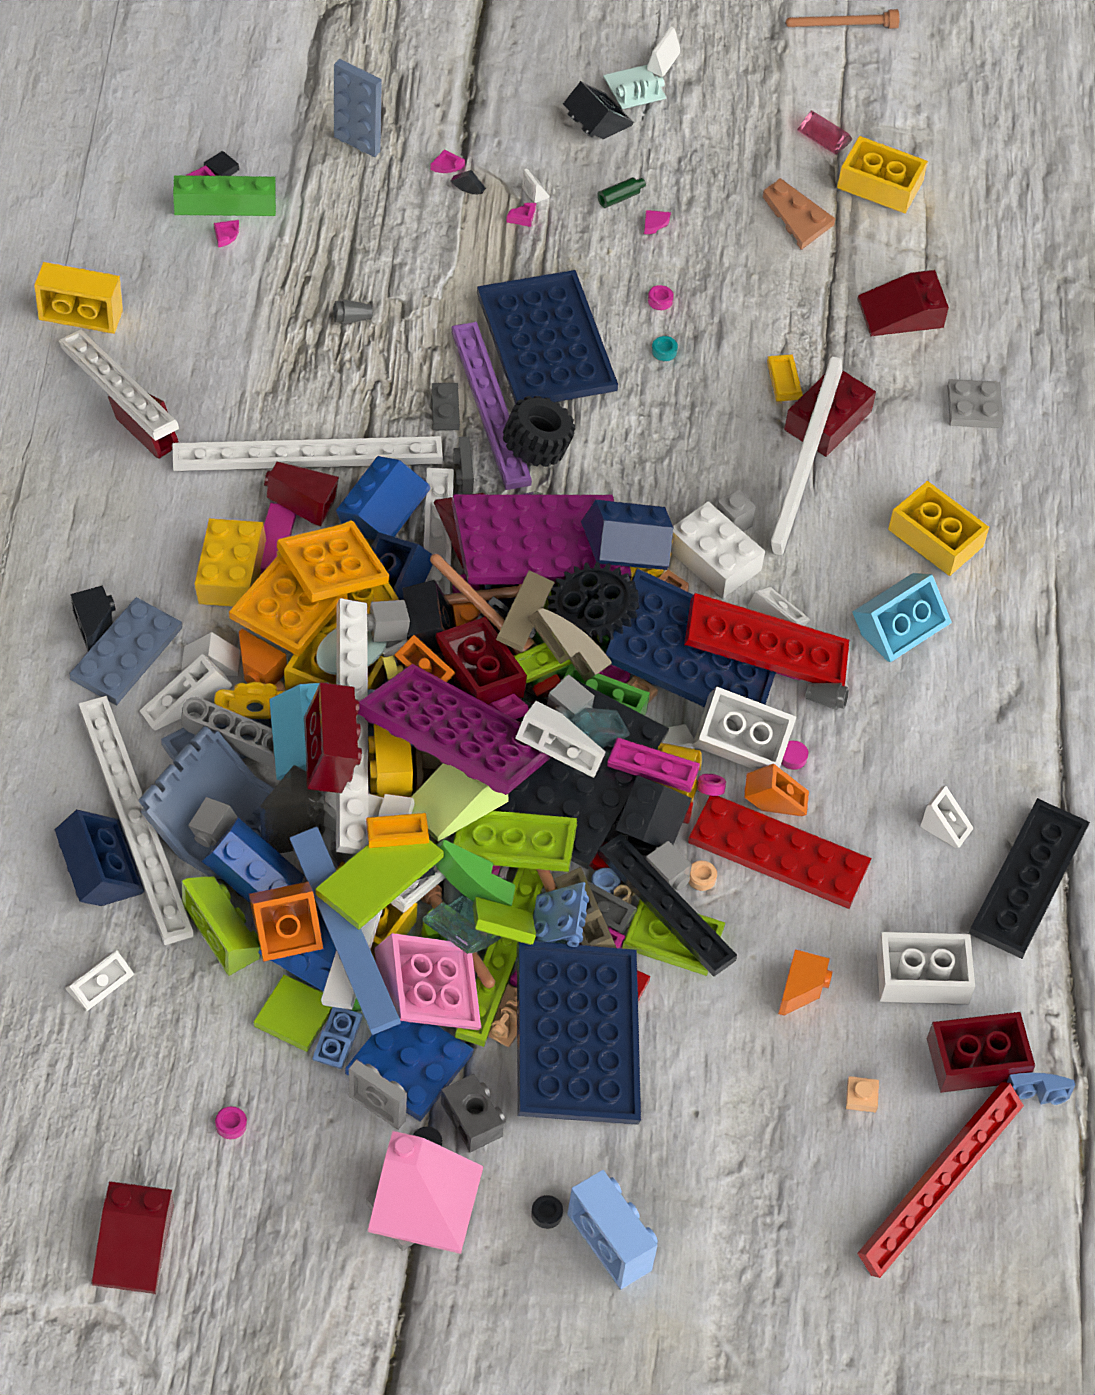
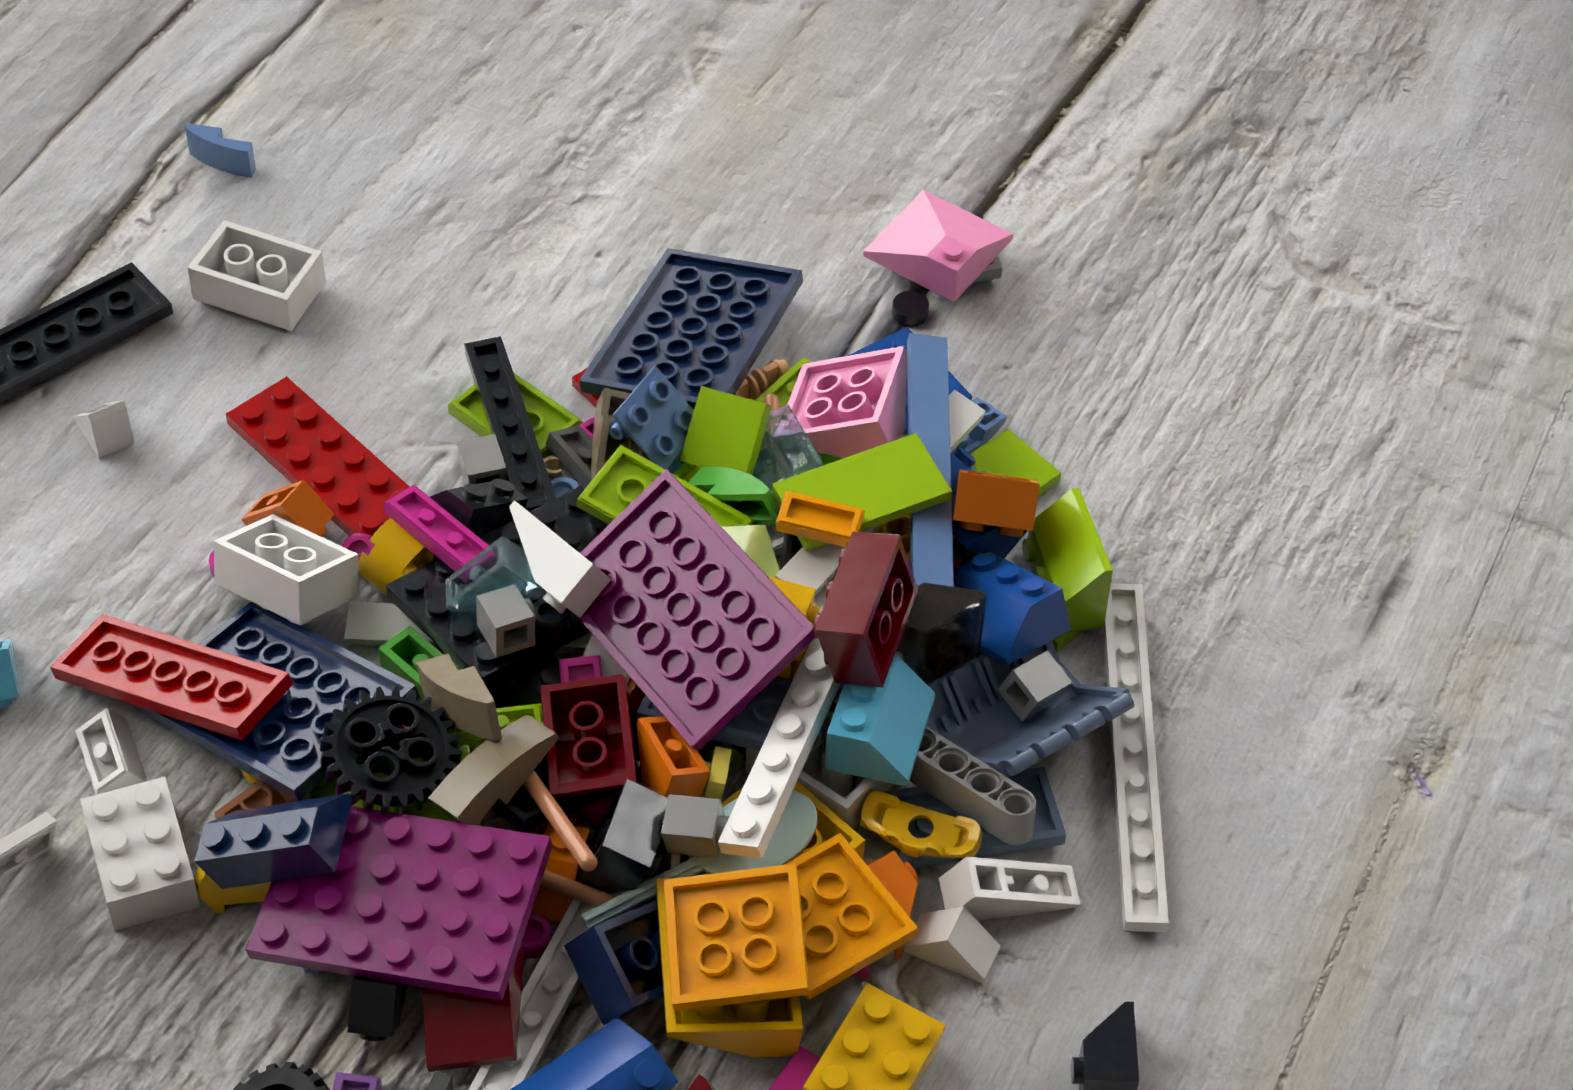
camera: 155 degrees left, 5 degrees down
(98, 858) = (1198, 707): dark blue slope -> none
(99, 980) = (1234, 583): white slope -> none
(126, 651) = (1065, 1000): sand blue plate -> none
(132, 1237) = (1263, 320): dark red slope -> none
(231, 1122) = (1121, 392): dark pink tile -> none
(377, 1094) = (964, 338): light grey plate -> none
(473, 1129) = (848, 309): flat silver brick -> none
(547, 1211) = (810, 216): black tile -> none
(612, 1228) = (757, 154): light blue brick -> none
(702, 875) = (439, 467): light nougat tile -> none
(738, 509) = (73, 898): light grey brick -> none
(805, 981) = (402, 314): orange slope -> none
(828, 694) = (128, 606): dark grey cone -> none
(862, 1094) = (409, 210): light nougat plate -> none
(940, 1180) = (370, 118): plate -> none
(979, 1051) = (260, 185): dark red brick -> none

